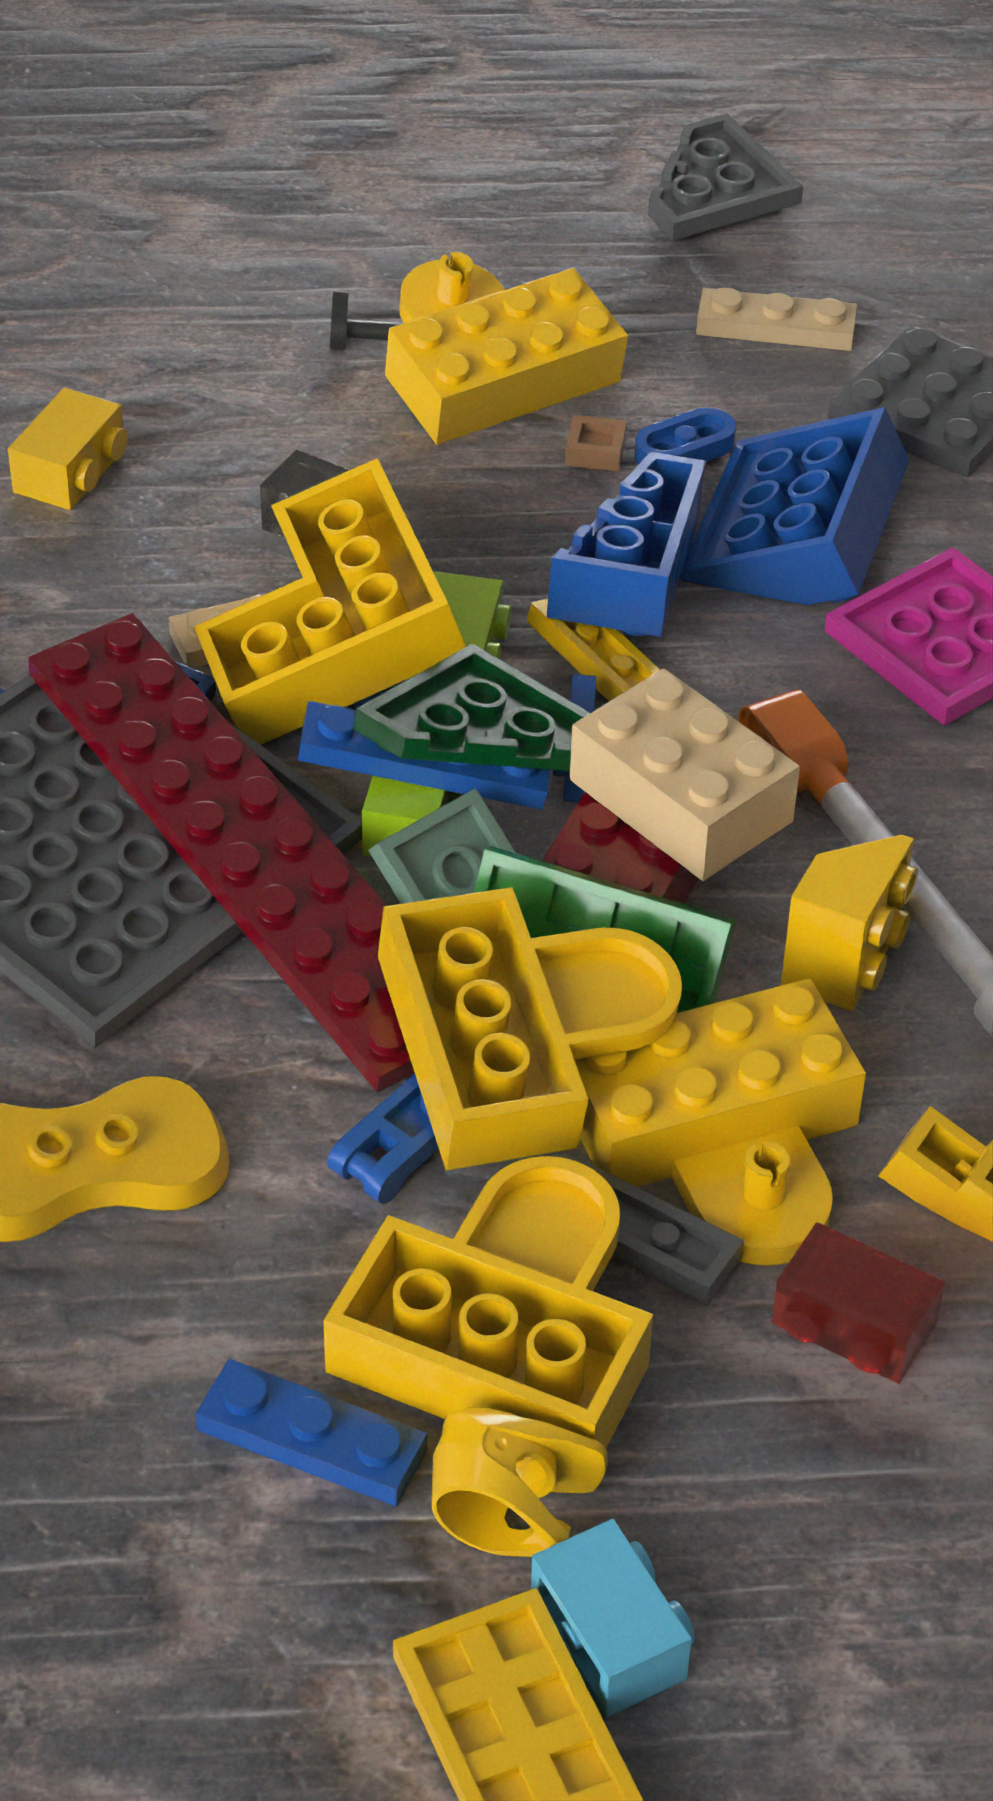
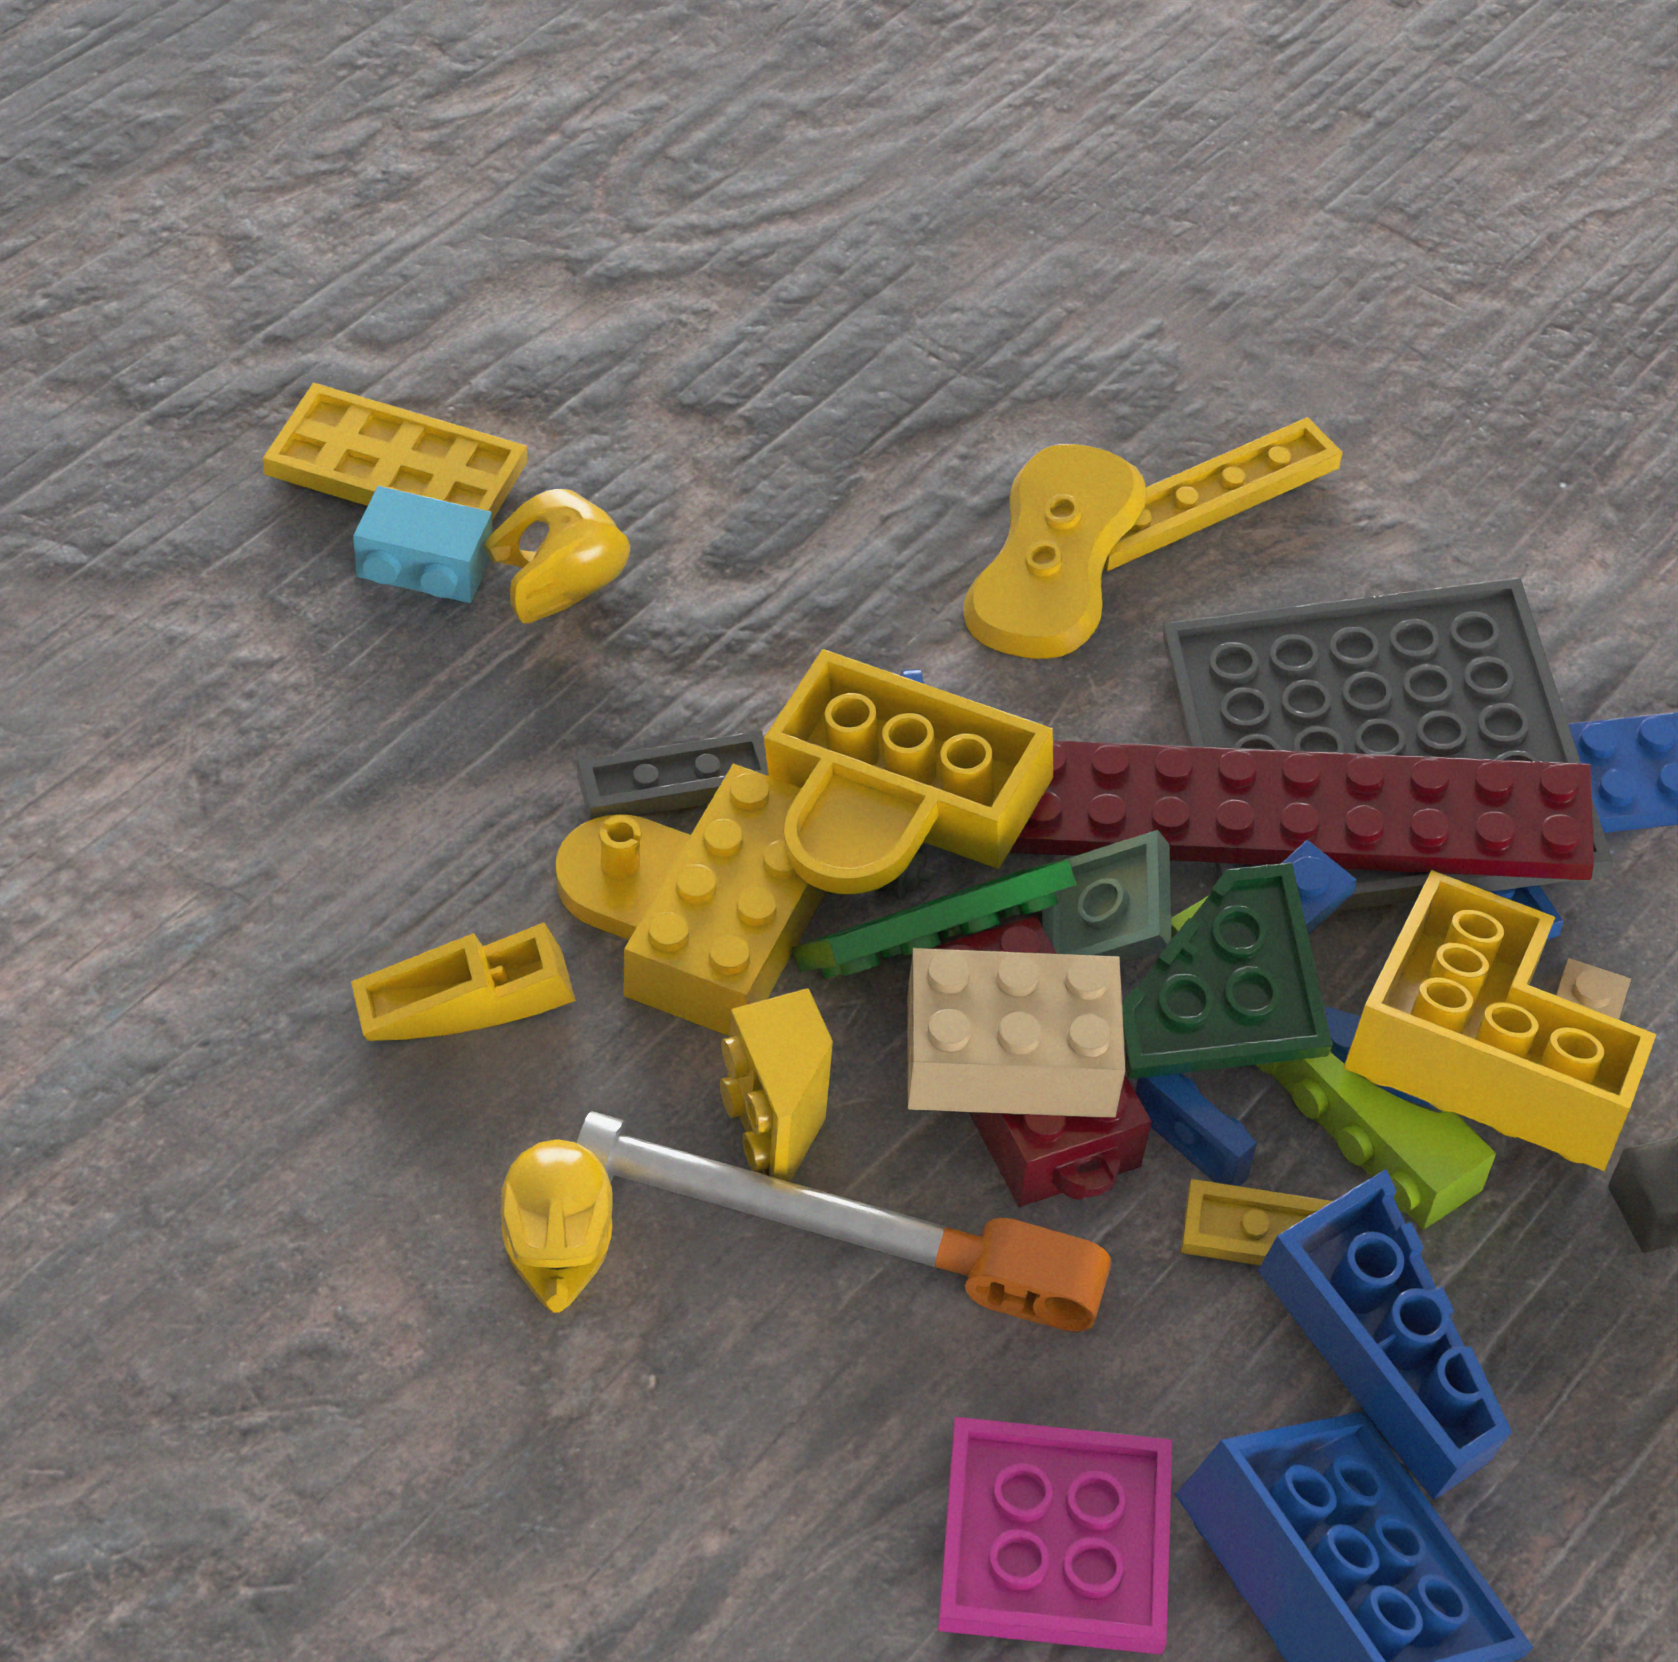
camera: 130 degrees right, 5 degrees up
(312, 1432) = (718, 531): blue plate -> none
(500, 1308) = (672, 621): yellow brick -> none
(595, 443) = (1623, 1492): medium nougat plate -> none
(694, 434) = (1560, 1581): blue plate -> none
(857, 1302) = (474, 830): clear red brick -> none

